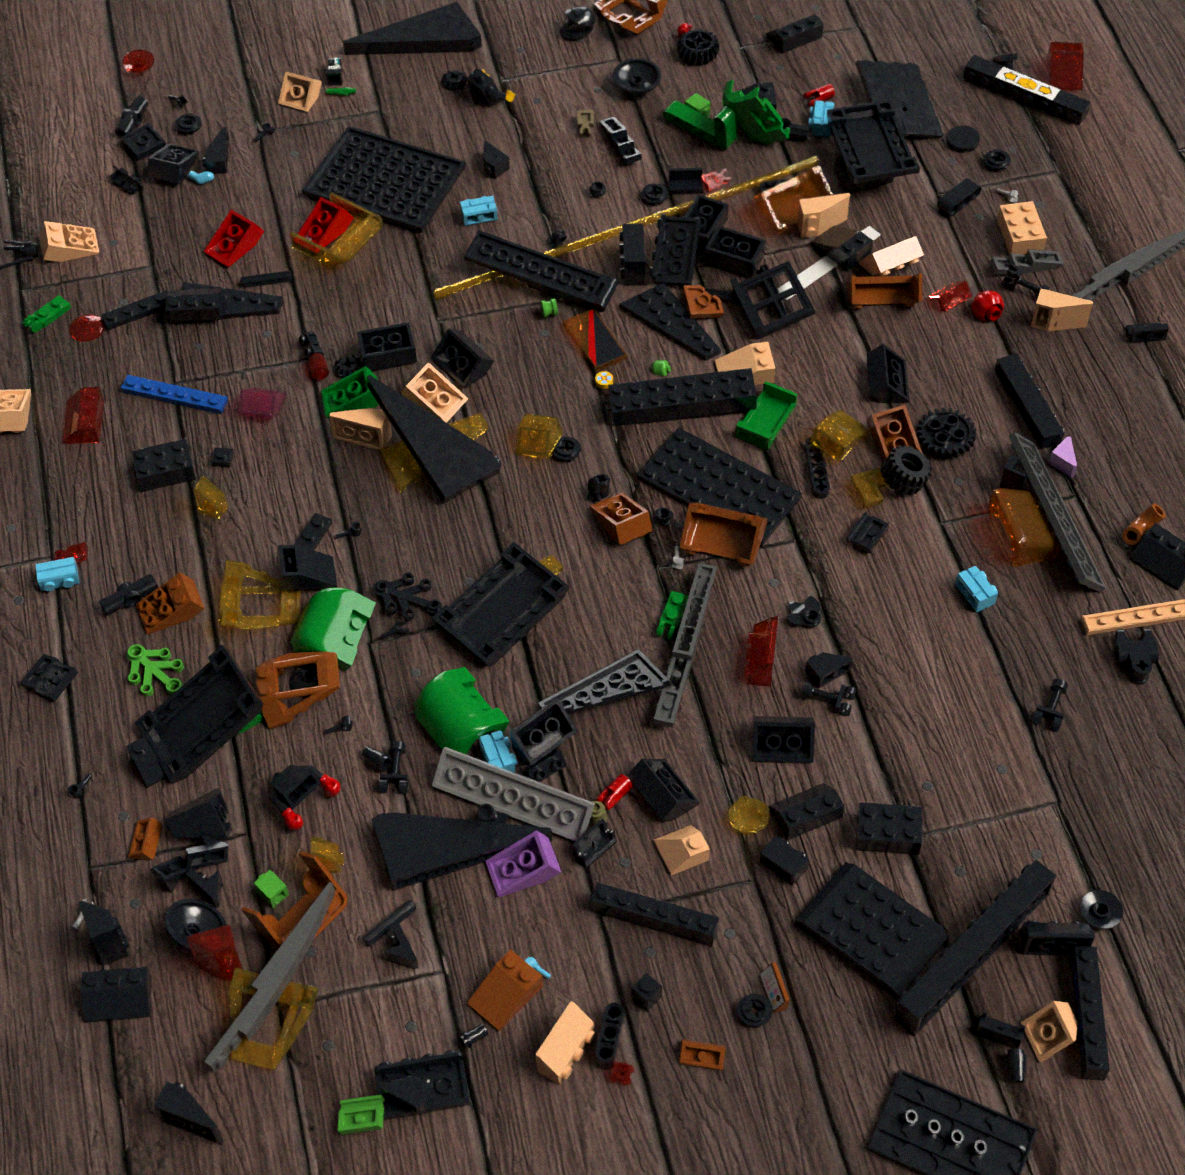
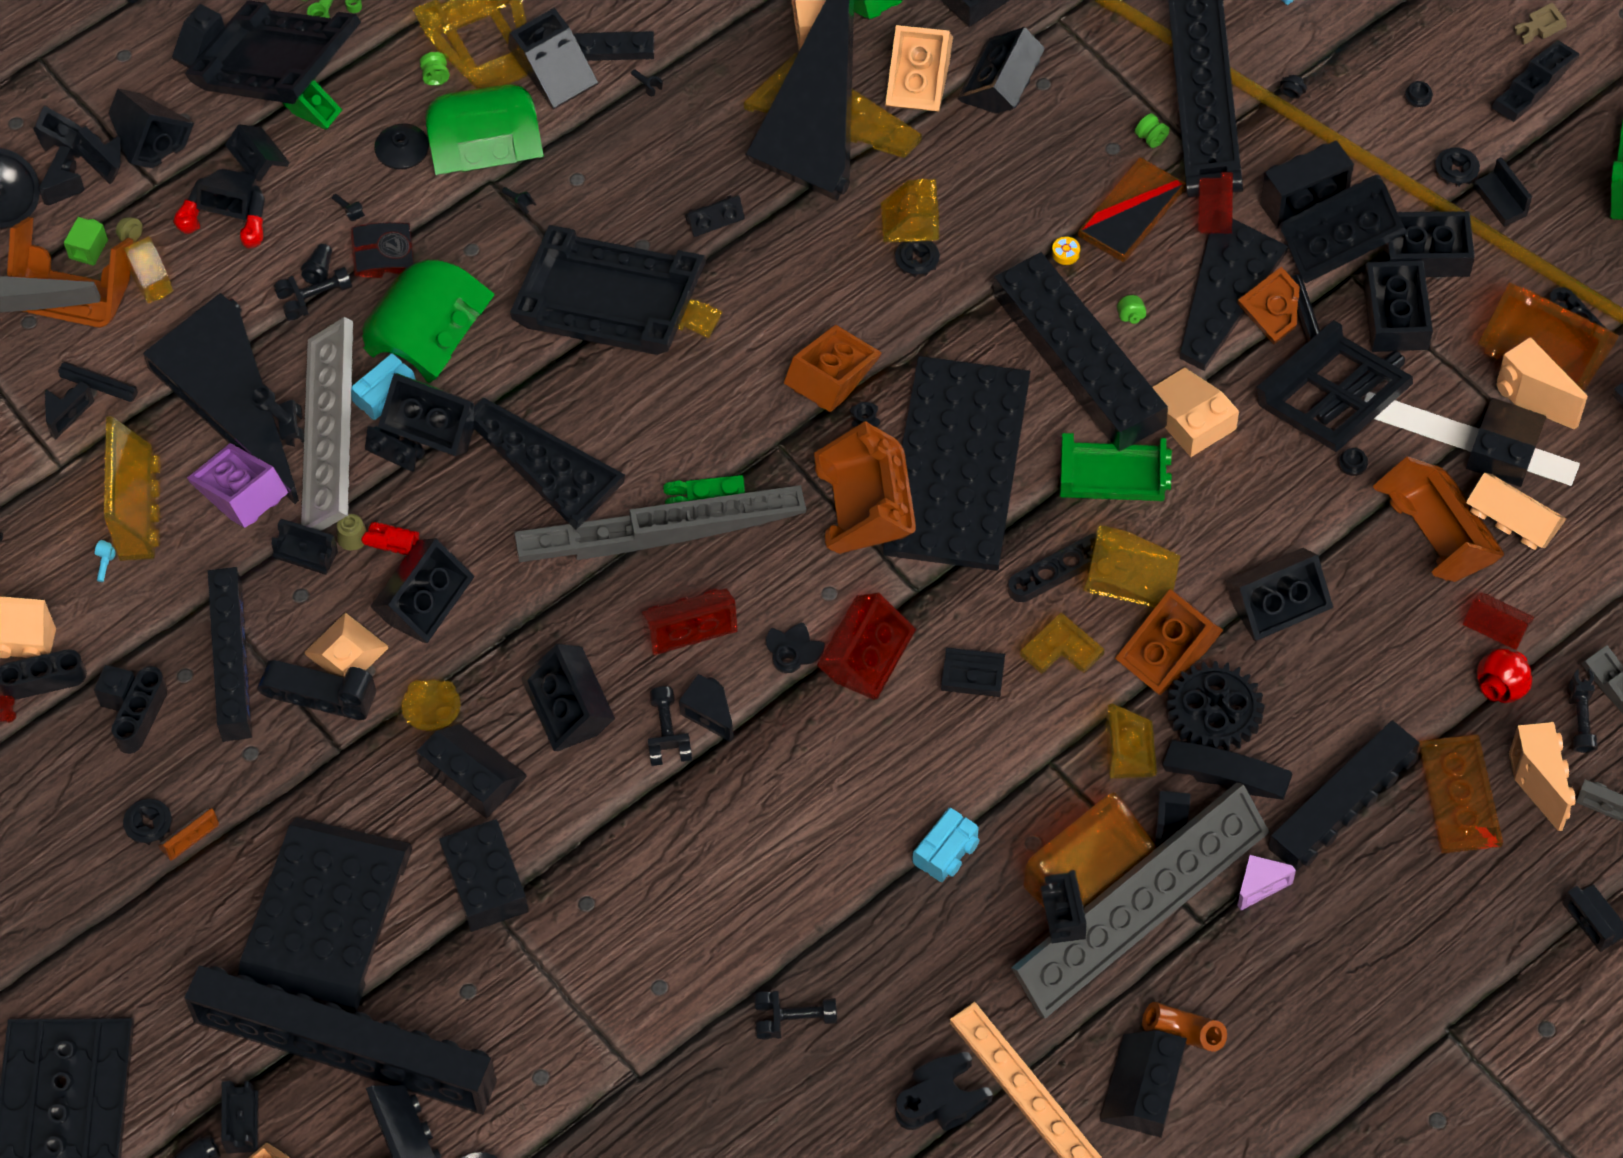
camera: 65 degrees right, 5 degrees up
(145, 839) = (98, 91): dark orange slope -> none
(261, 763) = (255, 150): none -> black panel
(265, 637) = (434, 68): none -> bright green wheel
(267, 674) = (330, 131): dark orange windscreen -> none
(278, 859) = (129, 228): none -> olive plate
(387, 718) = (381, 249): none -> black slope
(406, 595) = (576, 184): black plant -> none
(473, 527) = (715, 215): none -> black hinge
(502, 929) = (131, 492): none -> clear yellow slope
(505, 990) = (58, 540): dark orange slope -> none
(599, 487) = (871, 321): black piece -> none
(624, 295) = (1216, 204): none -> clear red panel
(674, 992) = (139, 697): none -> black beam
(677, 562) = (797, 462): light grey hand -> none
(702, 1054) = (65, 787): dark orange slope -> none
(713, 867) = (318, 690): none -> black beam
(714, 180) = (1529, 225): clear red plate -> none
(784, 860) = (379, 770): black brick -> none
(821, 313) = (1353, 461): none -> black plate
(823, 575) = (867, 645): none -> clear red slope
(906, 470) = (1123, 664): black tyre -> none
(949, 483) = (1129, 744): none -> clear yellow slope
(988, 443) = (1227, 768): none -> black slope
(1048, 355) = (1460, 794): none -> clear orange tile
(1059, 538) = (1064, 907): none -> black hinge

